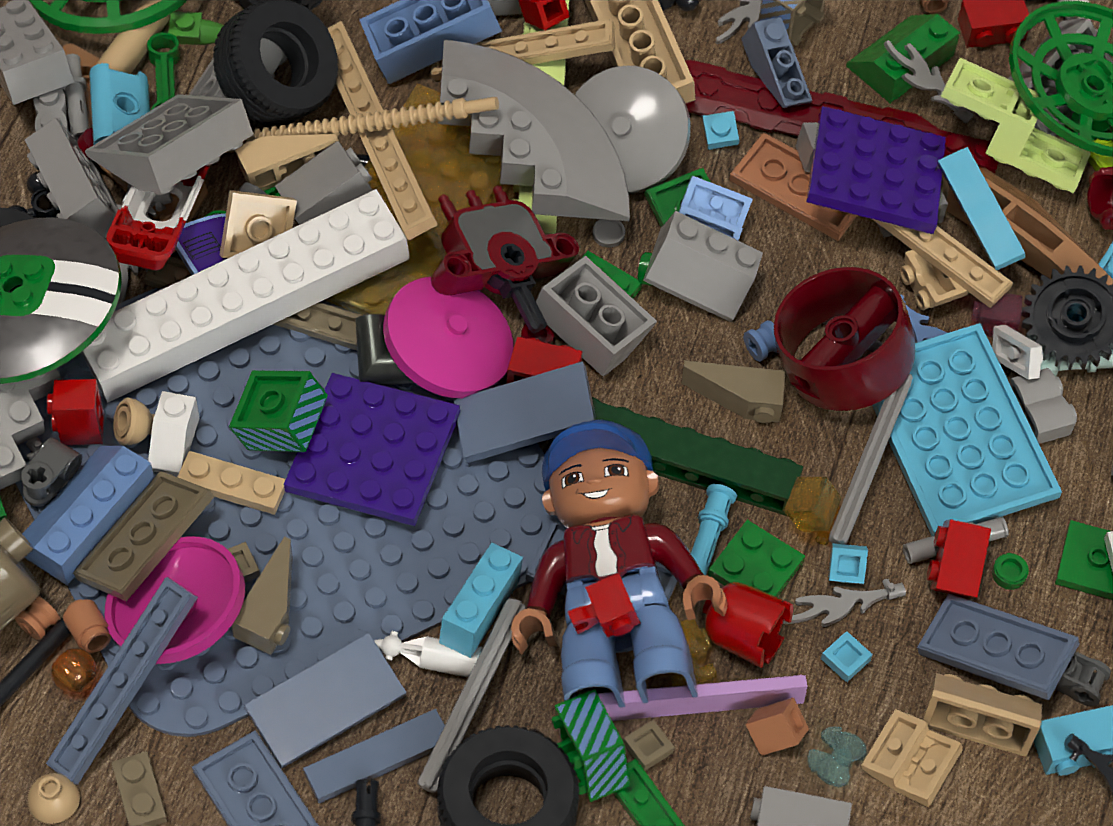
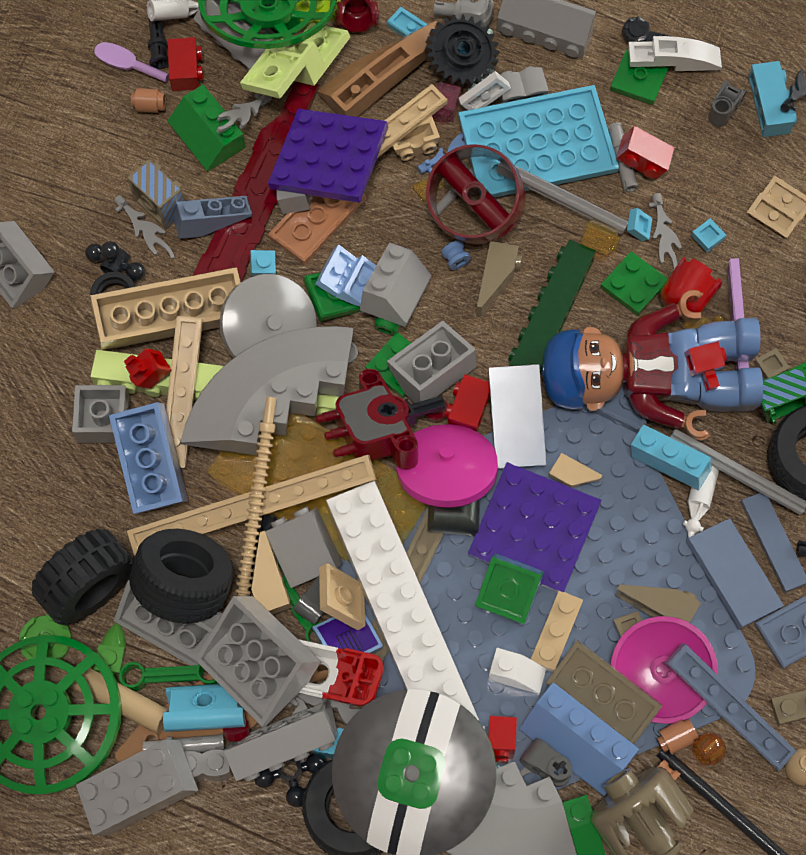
camera: 80 degrees left, 10 degrees up
(132, 422) = (506, 700): tan brick -> none
(456, 491) = (572, 472): none -> tan tile
(712, 521) = (600, 305): medium azure pin -> none
(777, 726) = (759, 284): nougat panel -> none
(834, 768) = (786, 254): clear light blue piece -> none
(981, 208) = (371, 92): medium azure tile -> none
(982, 714) = (755, 157): tan slope -> none
(998, 646) = (709, 141): sand blue tile -> none
(1010, 571) = (647, 125): green tile -> none

